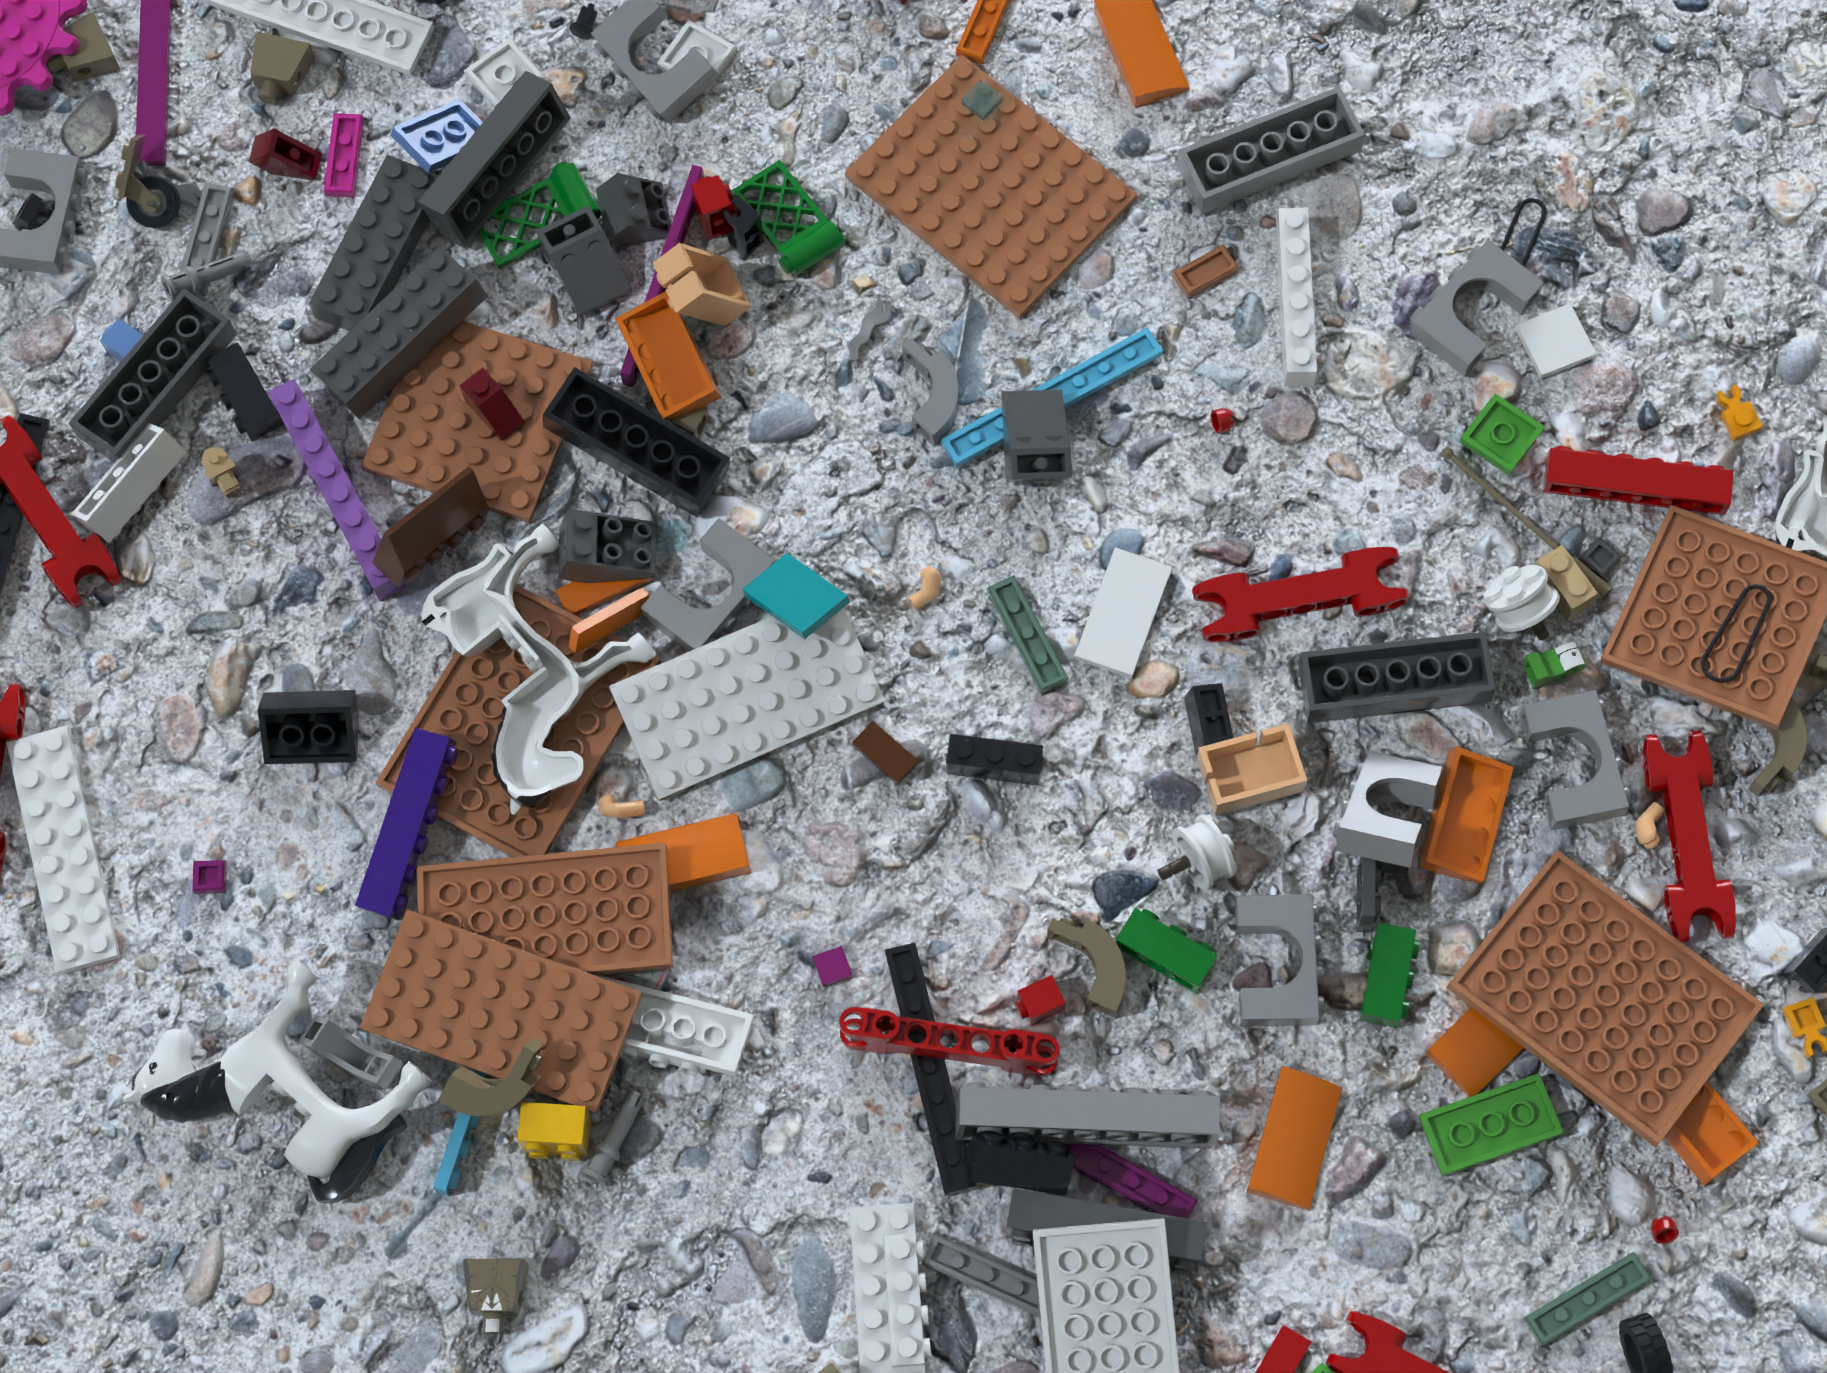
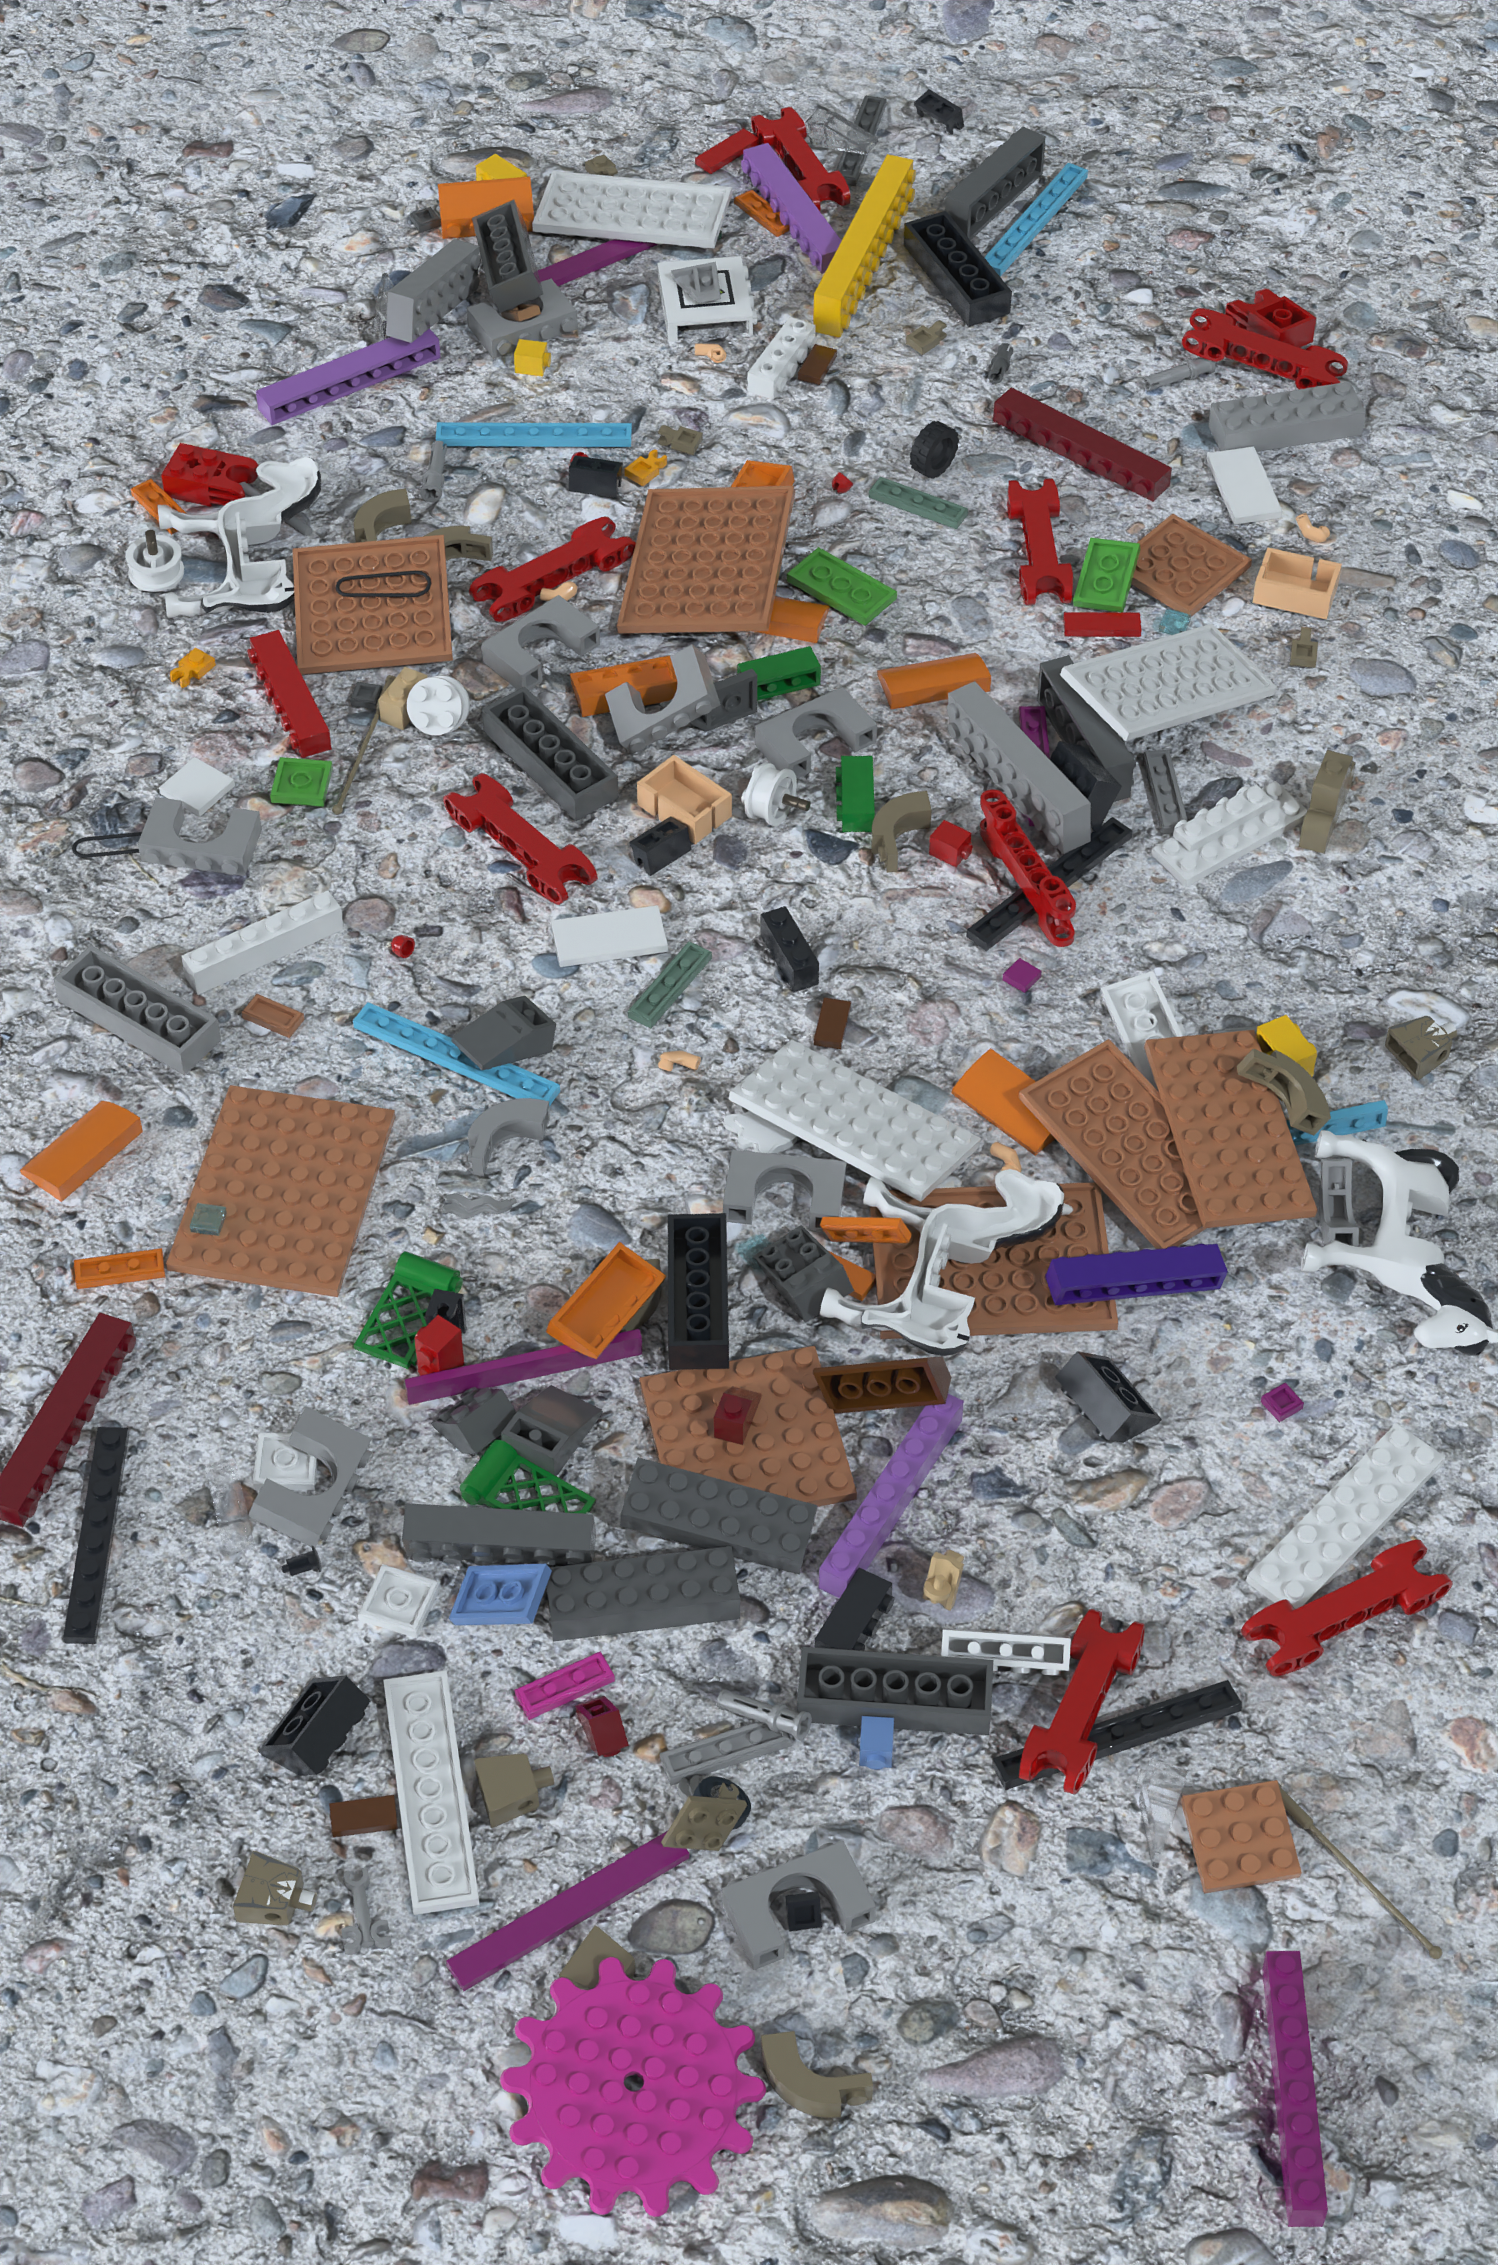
camera: 125 degrees left, 20 degrees down
(701, 285) = (526, 1307): light nougat piece -> none
(796, 596) = (757, 1108): teal tile -> none
(1553, 664) = (476, 682): bright green leg -> none

